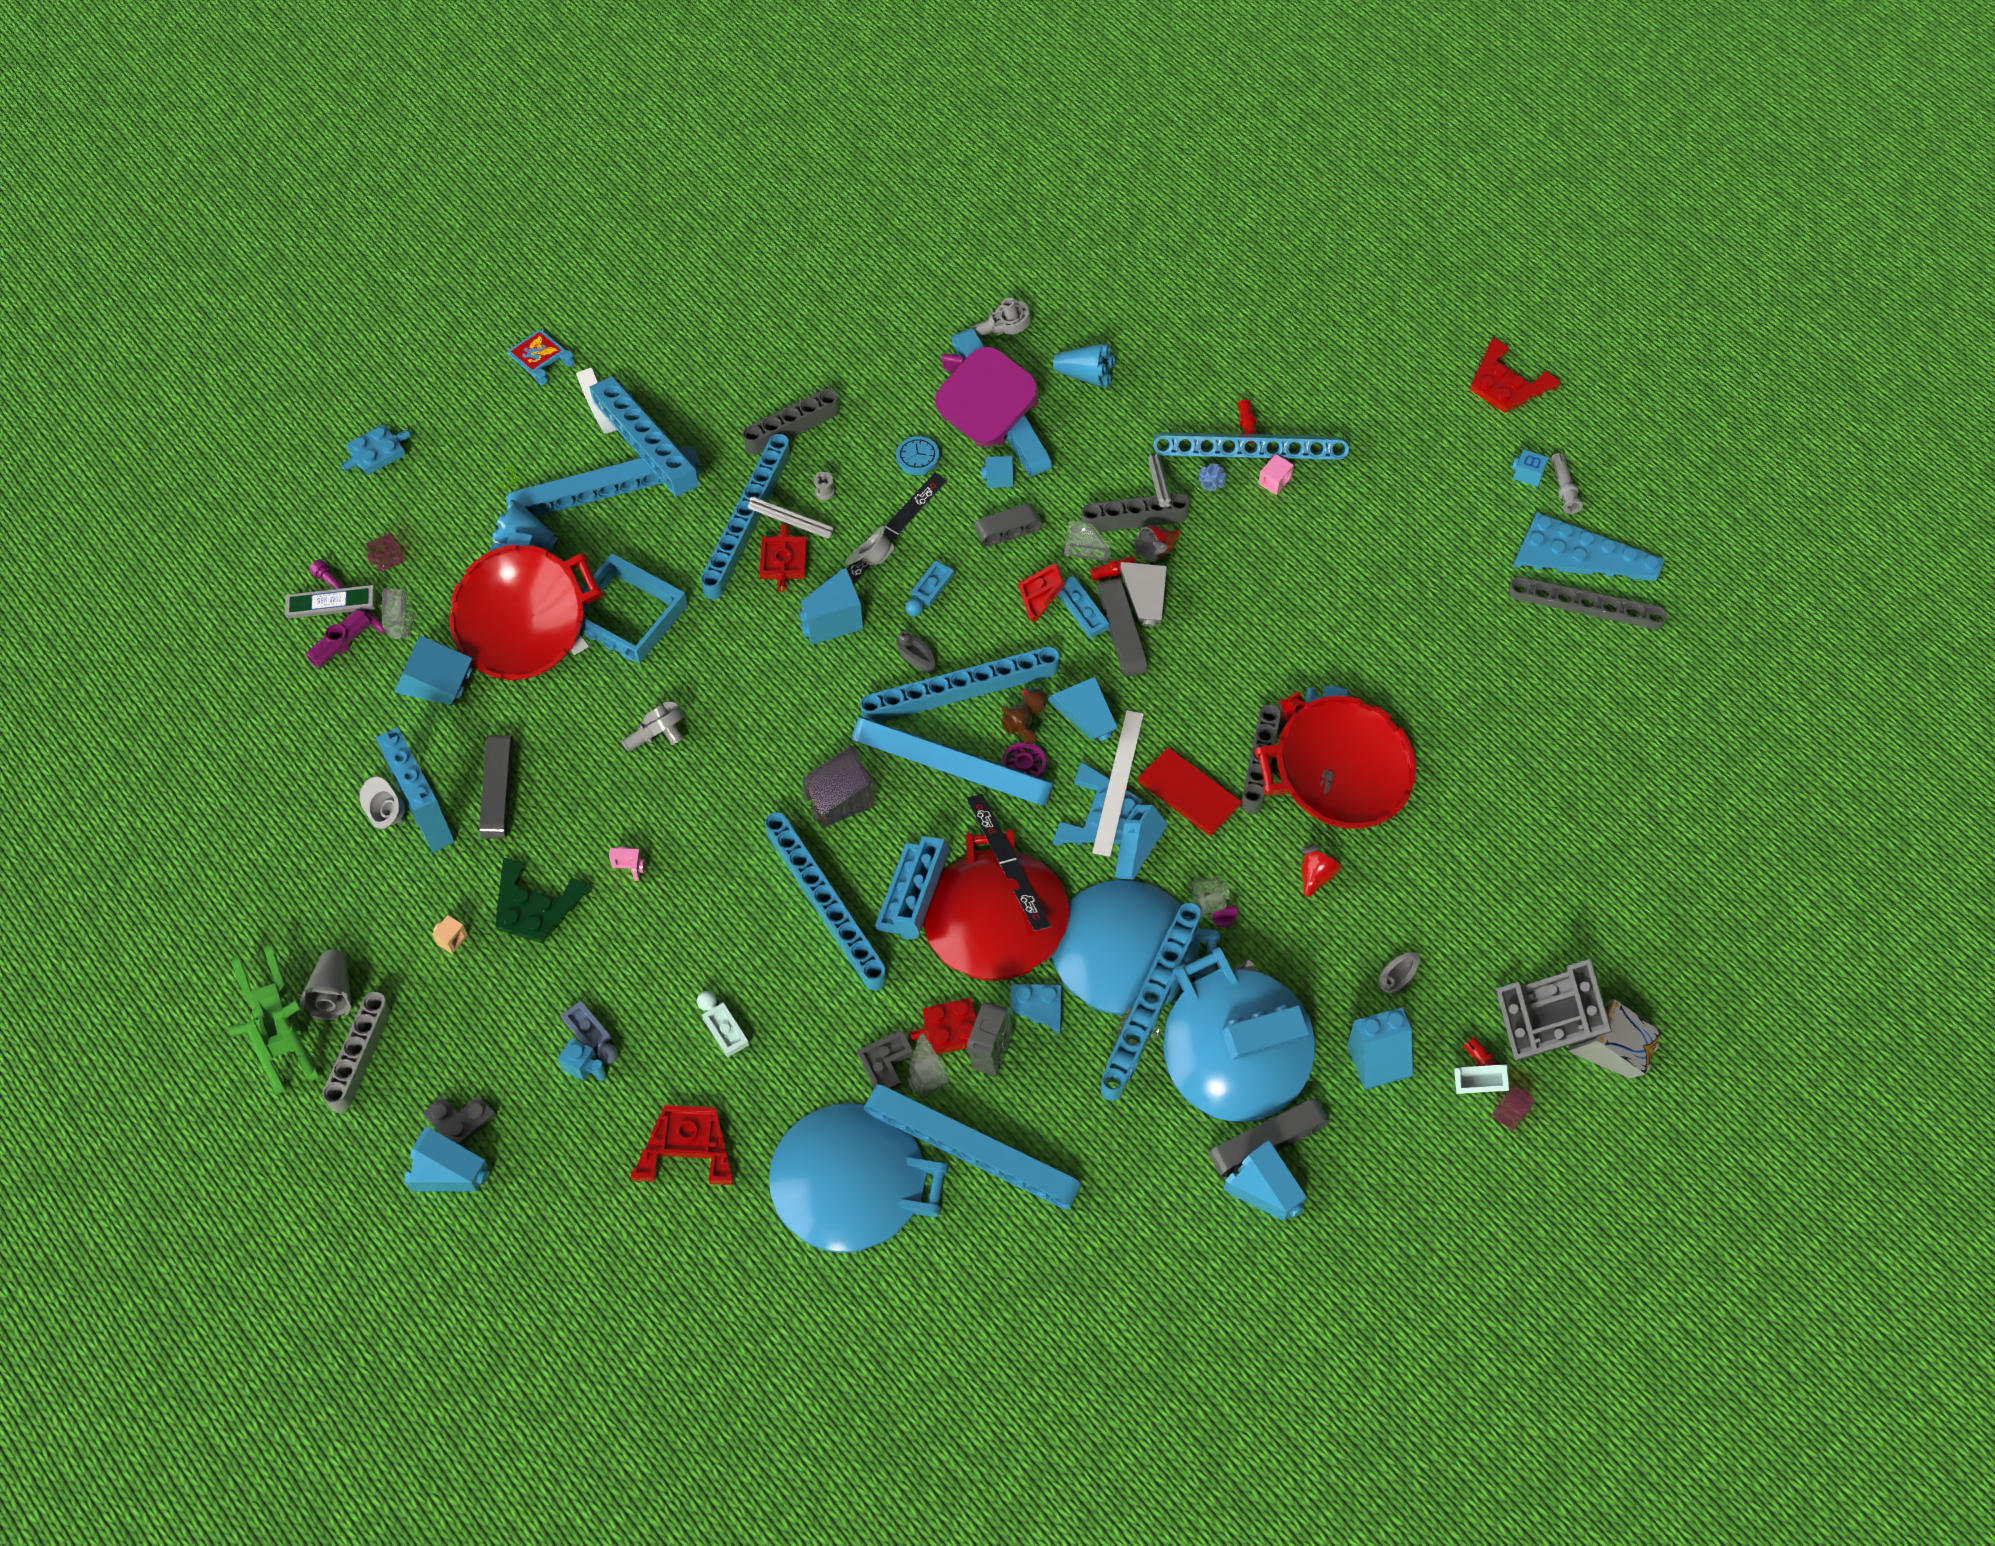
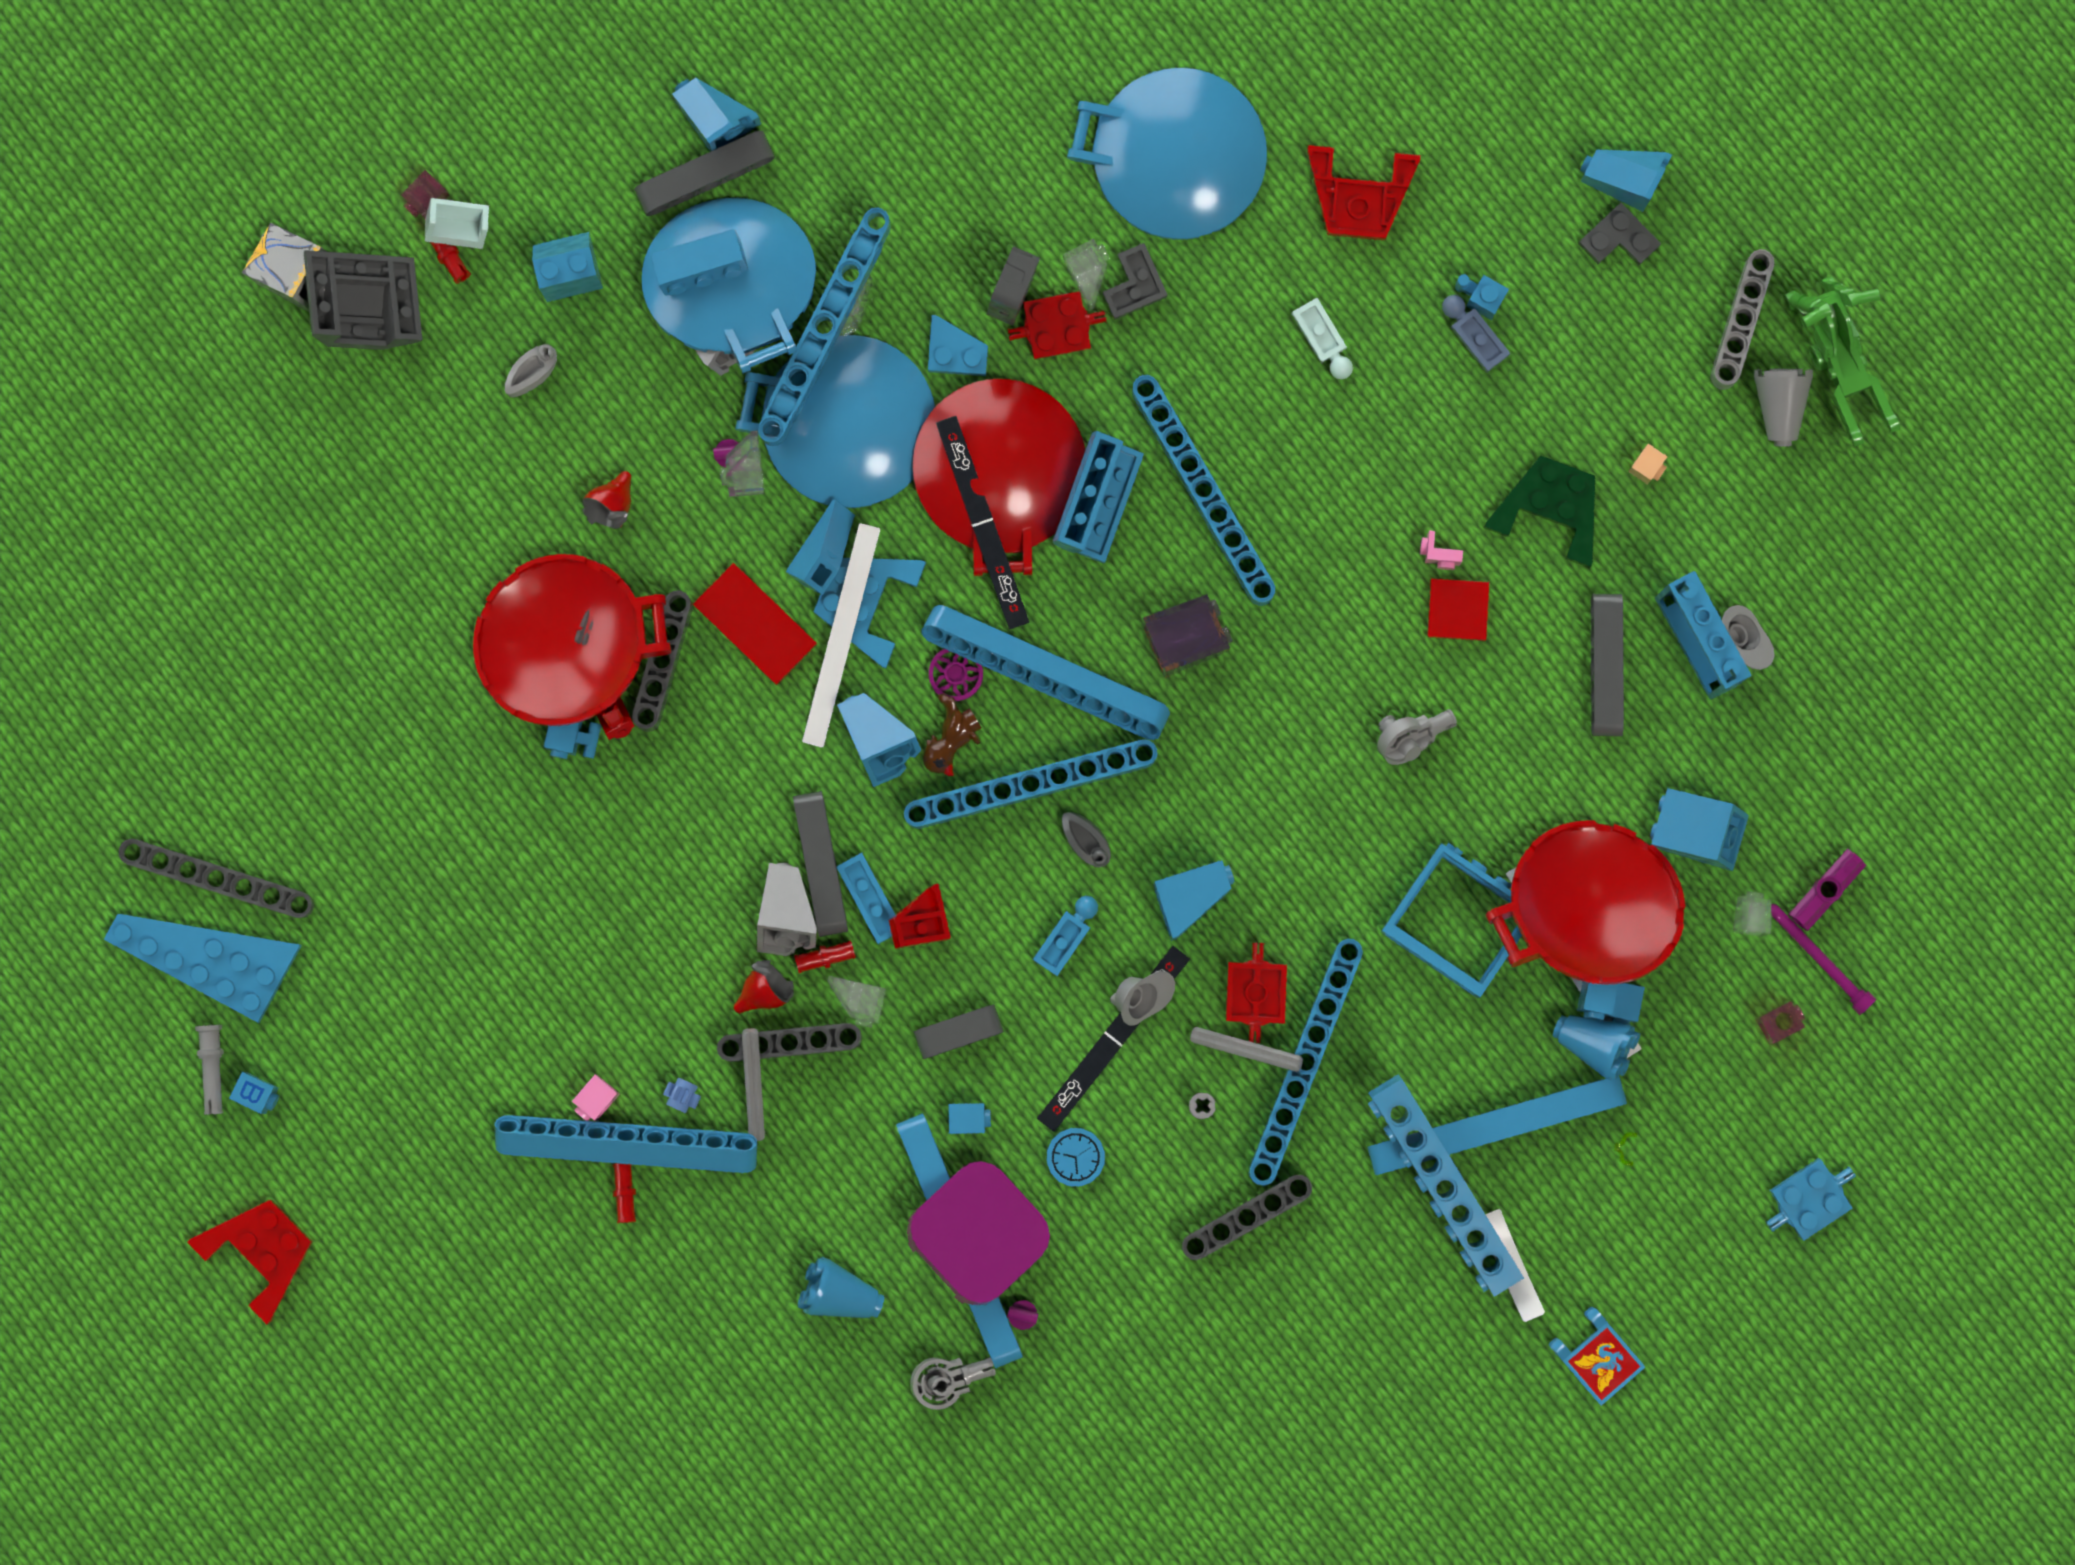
camera: 175 degrees left, 25 degrees up
(330, 601) = (1843, 946): tile -> none
(616, 824) = (1458, 609): none -> red tile
(973, 1147) = (1039, 172): dark azure beam -> none

